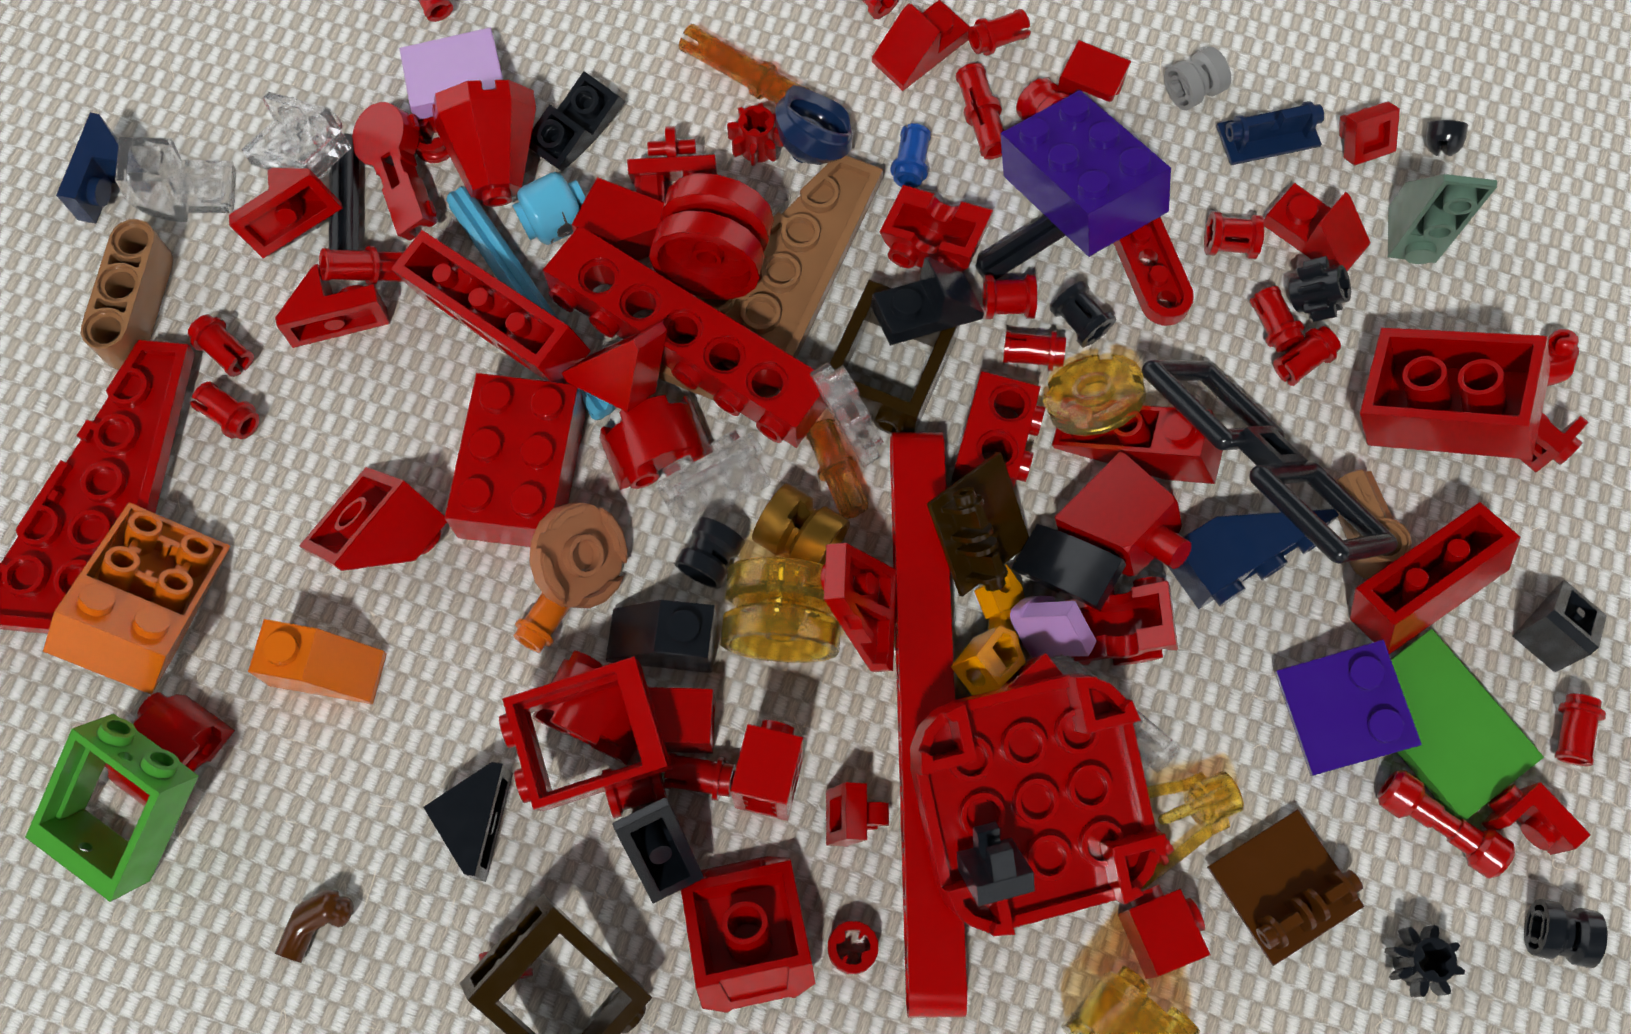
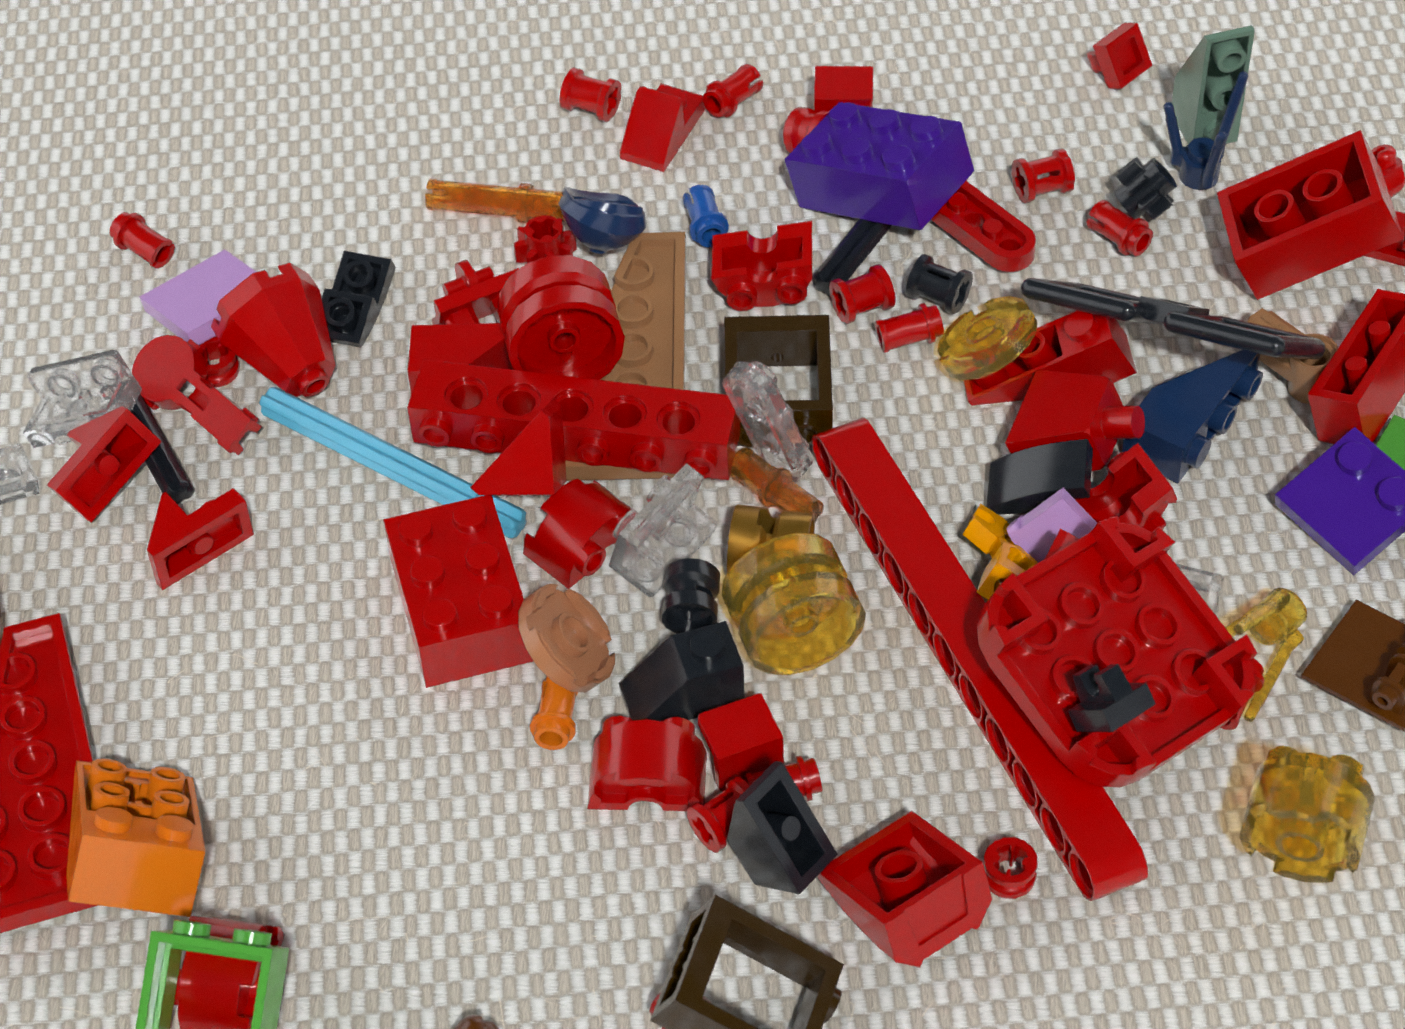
camera: 20 degrees left, 20 degrees down
(213, 338) = (89, 606): red pin -> none
(234, 417) = (127, 660): red pin -> none
(316, 662) = (345, 831): orange slope -> none
(358, 265) = (215, 479): red axle -> none
(375, 525) = (342, 688): red slope -> none
(471, 817) = (573, 902): black slope -> none
(490, 308) = (364, 465): red brick -> none
(519, 731) = (705, 719): red window -> none
(549, 207) = (373, 372): medium azure head -> none
(768, 769) = (853, 738): red brick -> none
(851, 815) = (947, 754): red tile -> none
(863, 601) = (869, 559): red wing -> none
(926, 306) = (792, 314): black slope -> none
(979, 526) = (940, 471): dark brown hinge -> none
(981, 109) = (735, 142): red pin -> none
(991, 432) = (914, 404): red brick -> none
(1164, 931) = (1290, 722): red brick -> none
(1203, 75) = (939, 66): light grey wheel -> none
(1271, 133) = (1031, 87): dark blue hinge -> none
(1317, 347) = (1168, 237): red pin -> none
(1319, 229) = (1112, 147): red slope -> none
(1392, 275) = (1202, 156): none -> dark blue plant
(1446, 133) = (1187, 35): black hinge -> none

